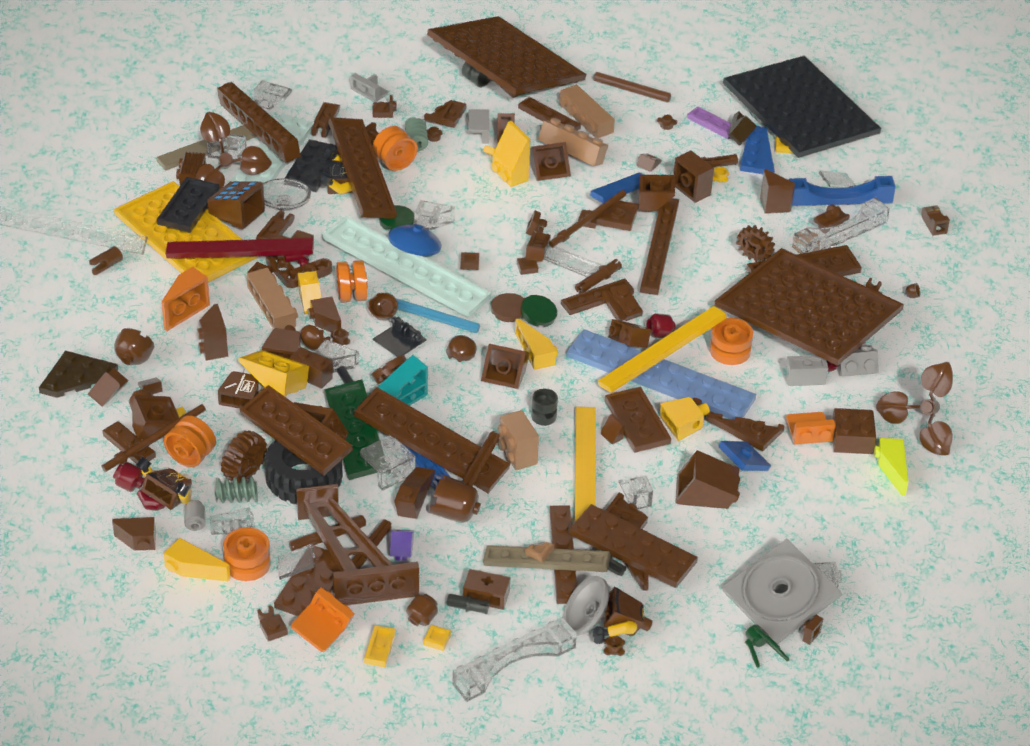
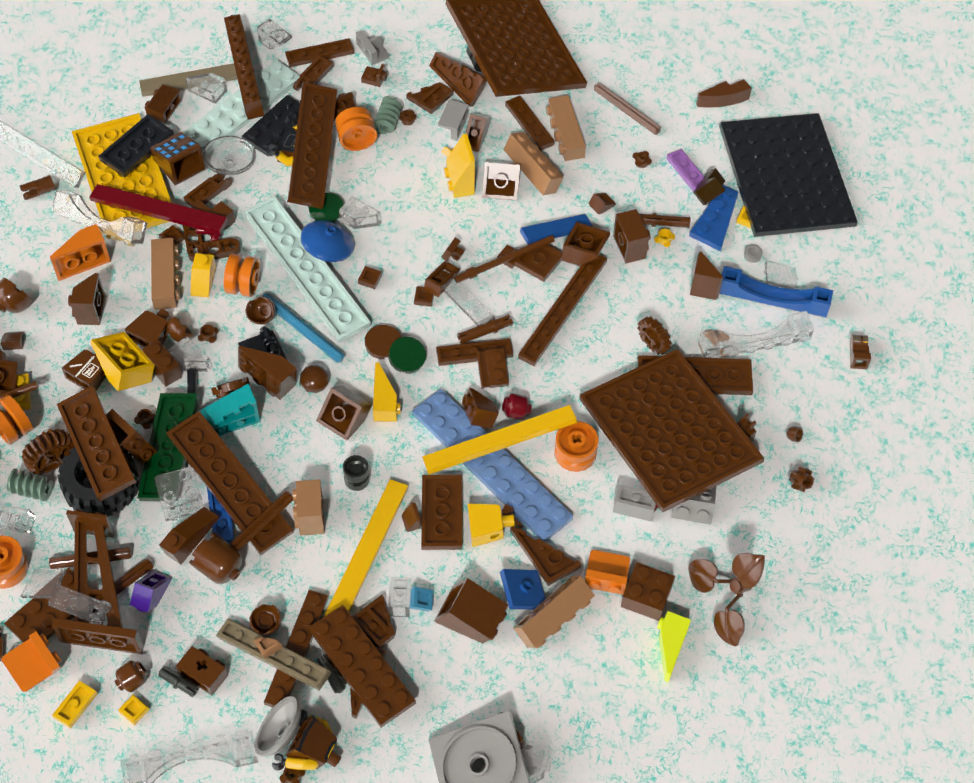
camera: 20 degrees right, 15 degrees up
(221, 265) = (72, 206): none -> clear arch
(253, 159) = (217, 110): reddish brown plant -> none
(314, 103) = (326, 50): none -> reddish brown tile
(324, 314) = (205, 303): reddish brown slope -> none
(346, 560) = (79, 604): none -> clear plate
(424, 342) = (268, 370): none -> reddish brown slope
(472, 92) = (458, 77): none -> reddish brown wing
(524, 534) = (265, 619): none -> reddish brown hair
(659, 486) = (421, 599): none -> dark azure plate
(714, 58) = (724, 94): none -> reddish brown slope
(781, 465) = (553, 612): none -> medium nougat brick
(803, 170) = (753, 253): none -> light grey tile
(832, 217) = (750, 322): reddish brown hips -> none
(938, 320) = (801, 479): none -> reddish brown gear

